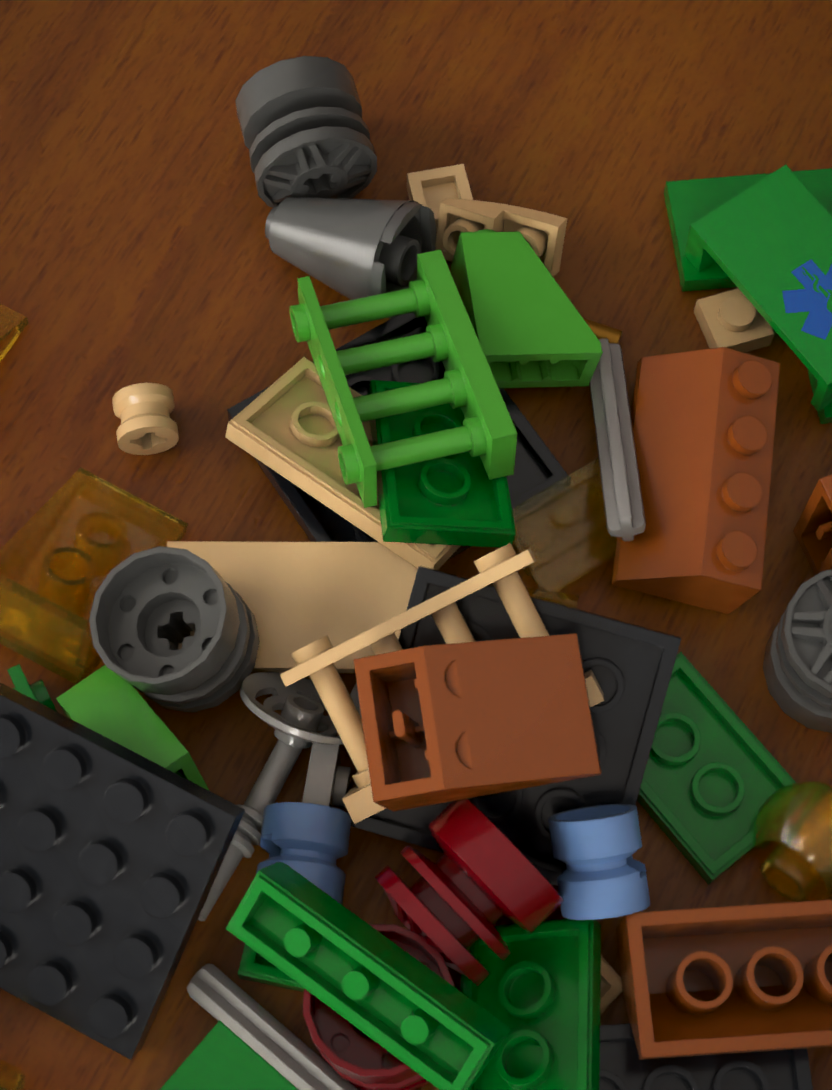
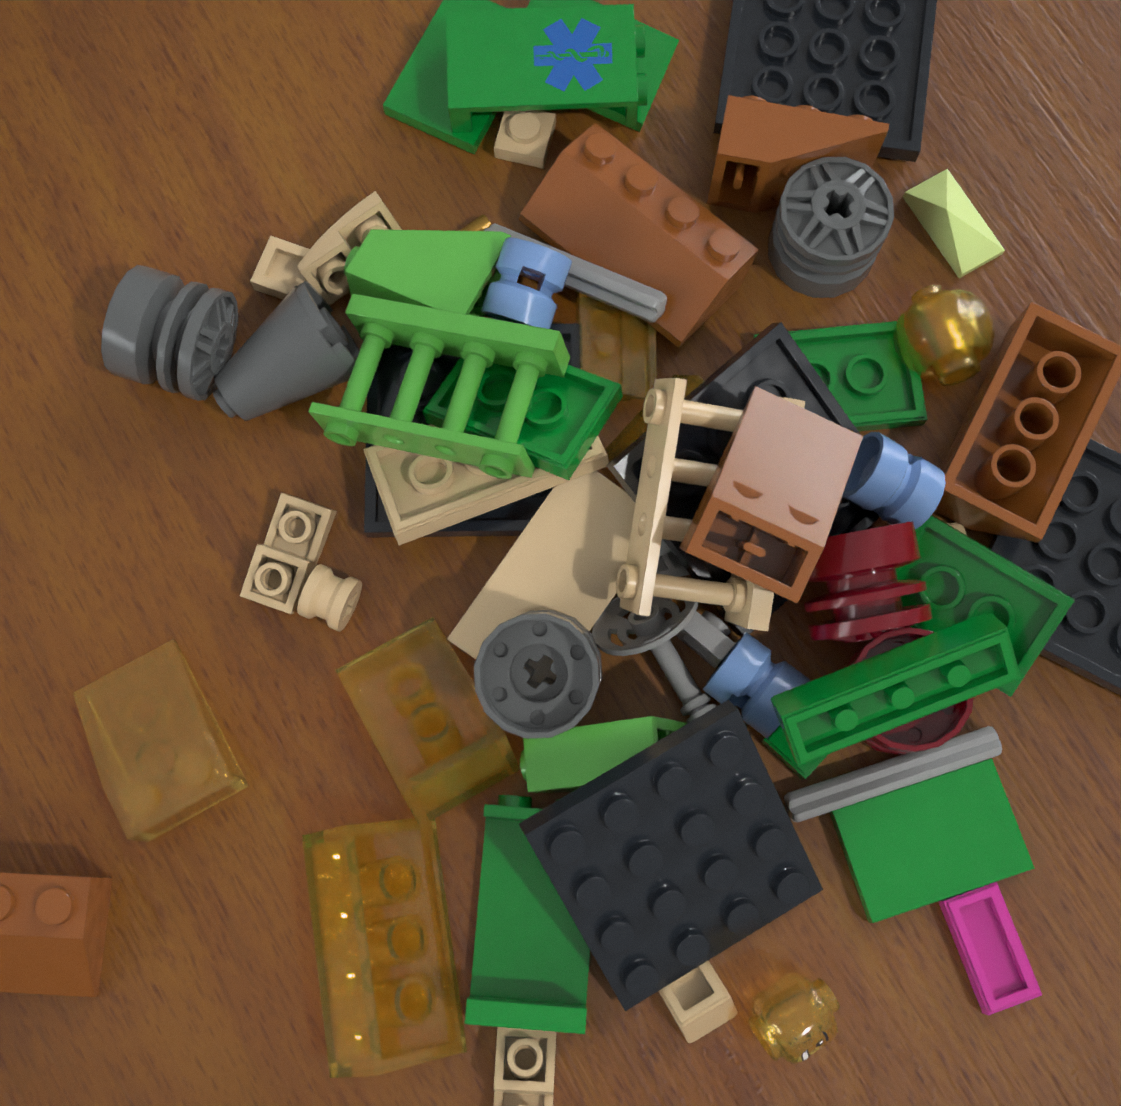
camera: 55 degrees left, 10 degrees up
(182, 361) = (288, 553): none -> tan slope
(537, 403) = (519, 303): none -> medium blue wheel

